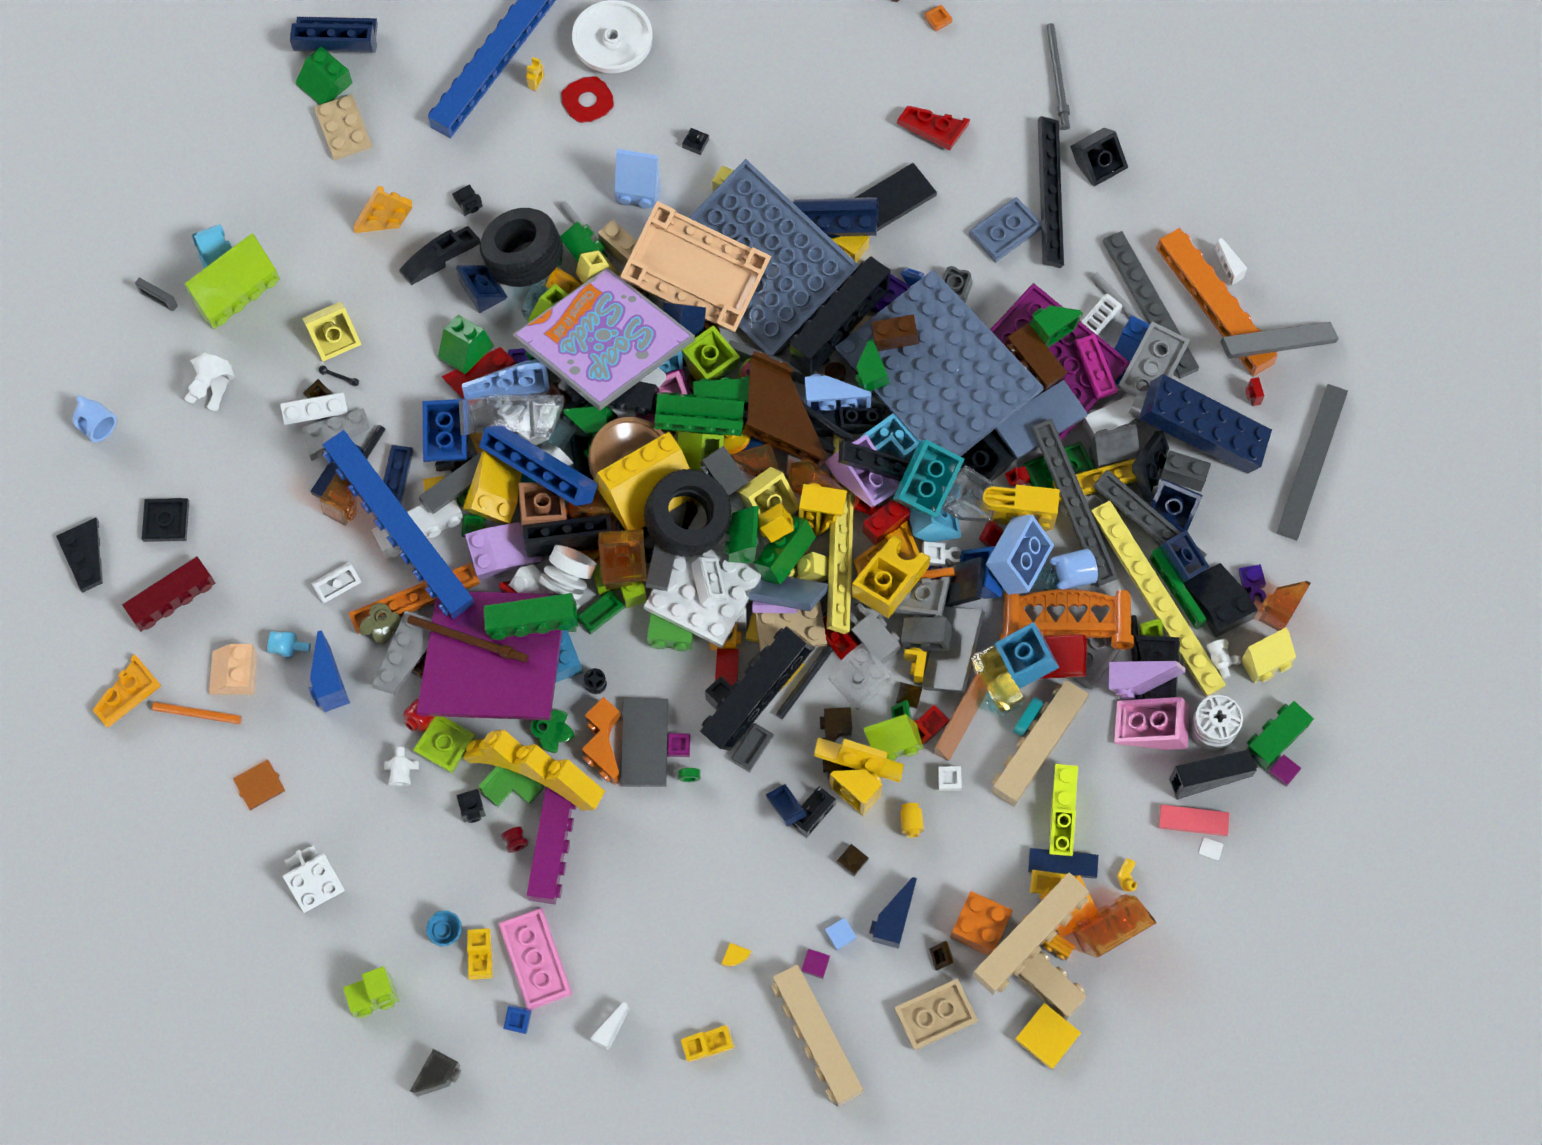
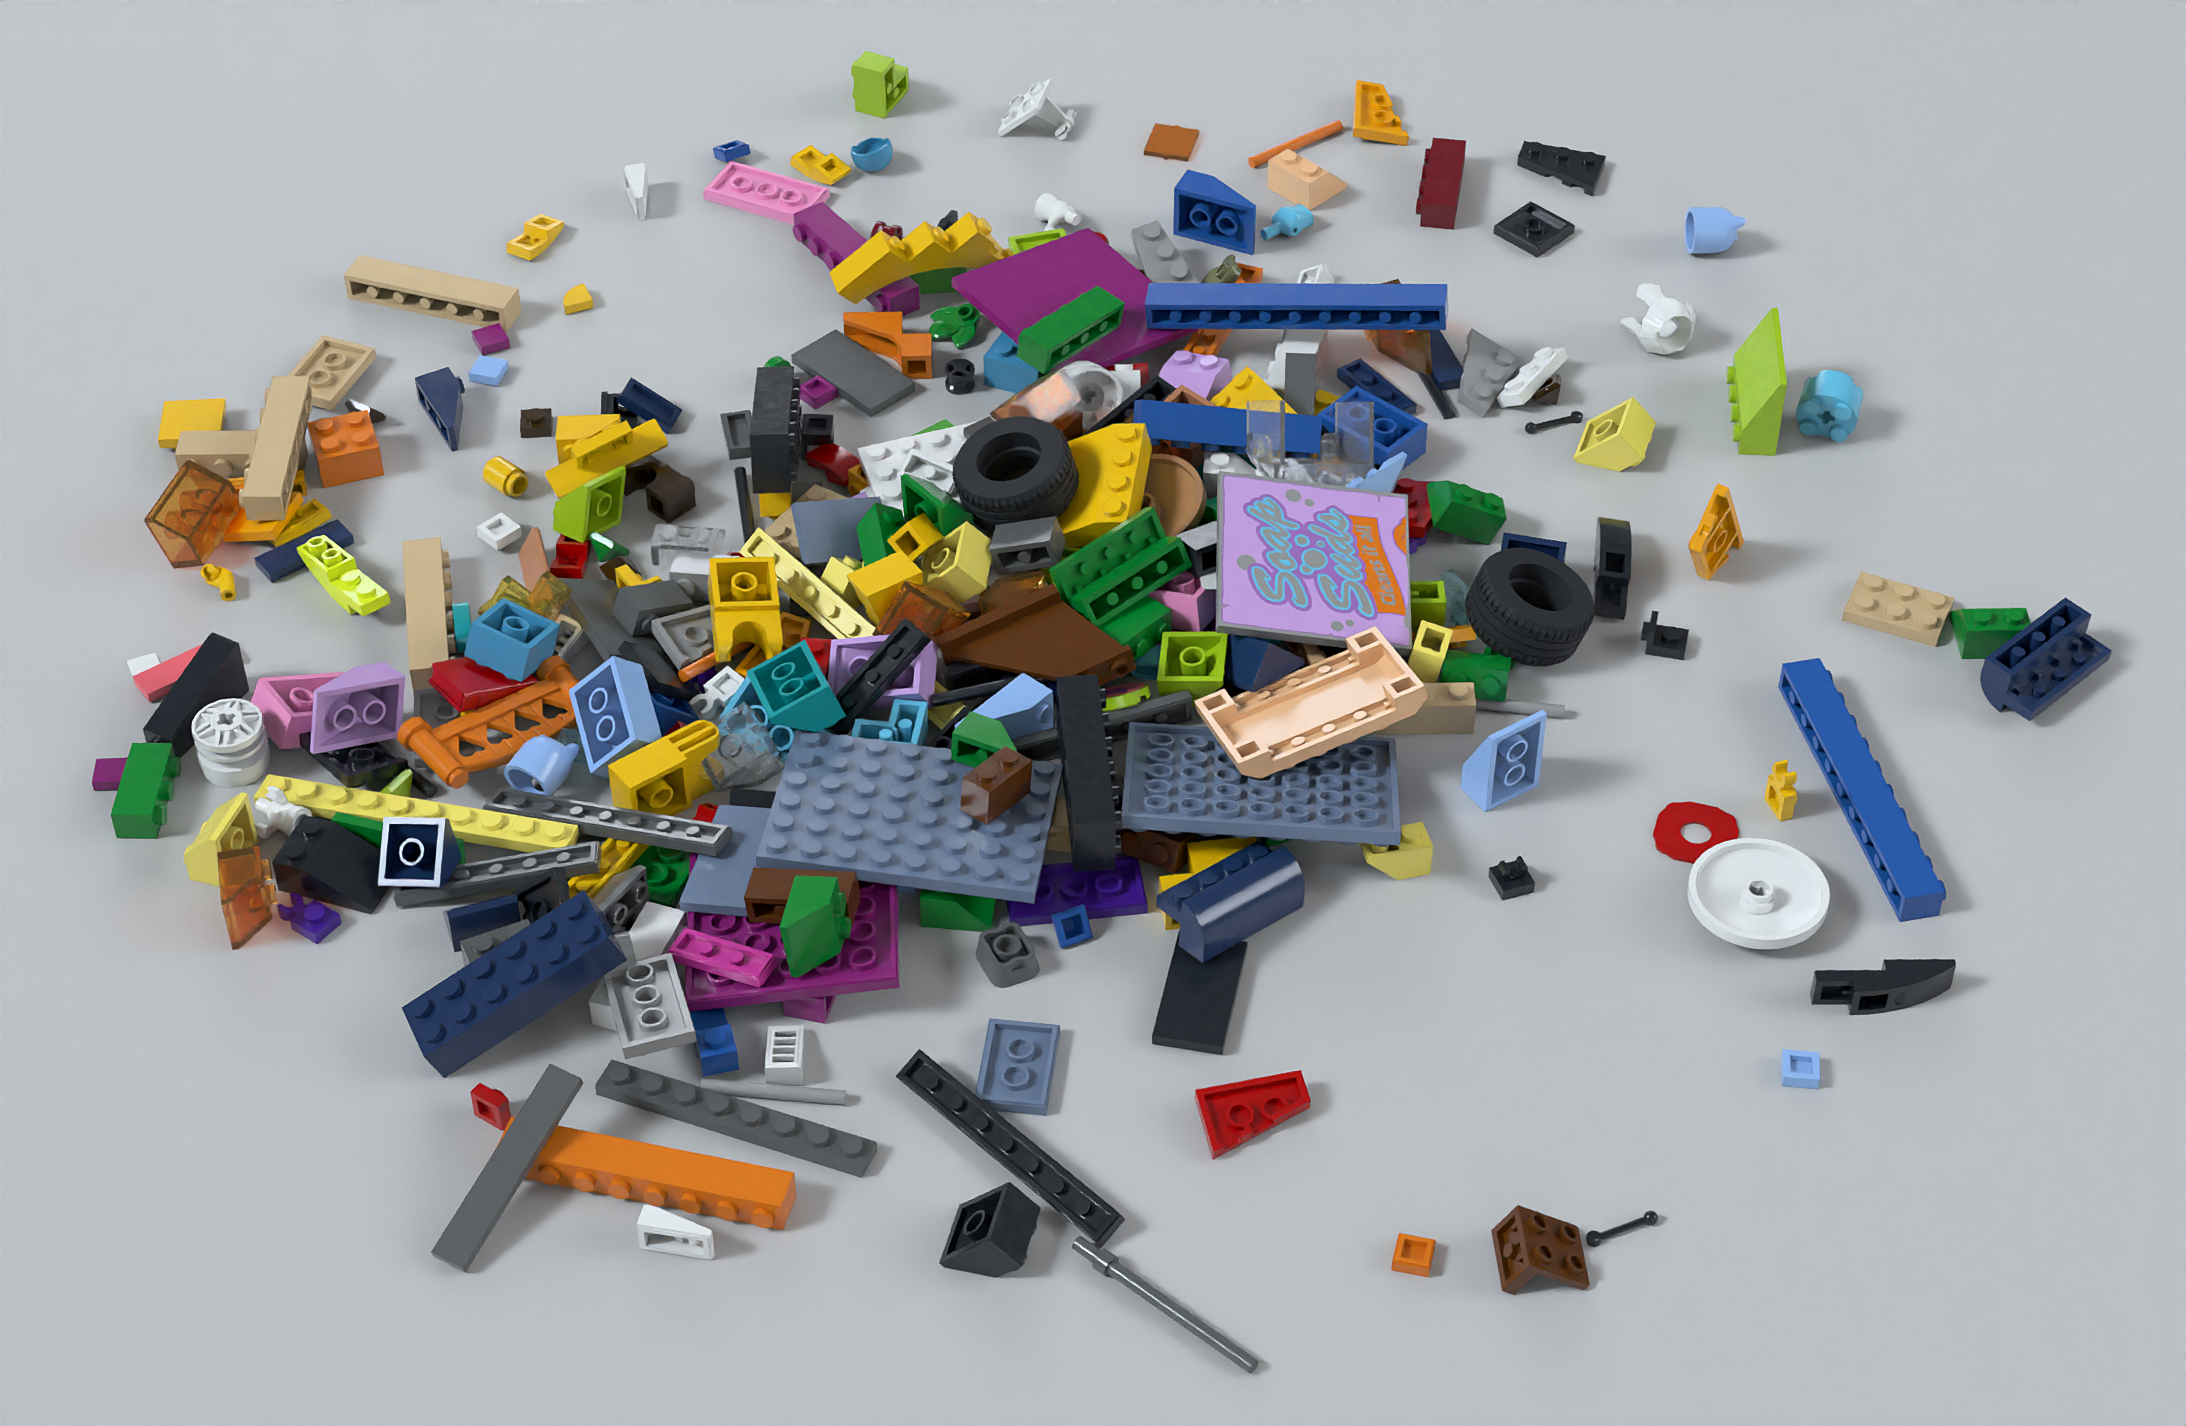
camera: 135 degrees right, 25 degrees down
(156, 294) = (1822, 351): dark grey tile -> none
(436, 1074) = (759, 84): clear smoke slope -> none
(505, 651) = (1060, 297): reddish brown bar -> none
(1312, 462) = (345, 1095): dark grey tile -> none

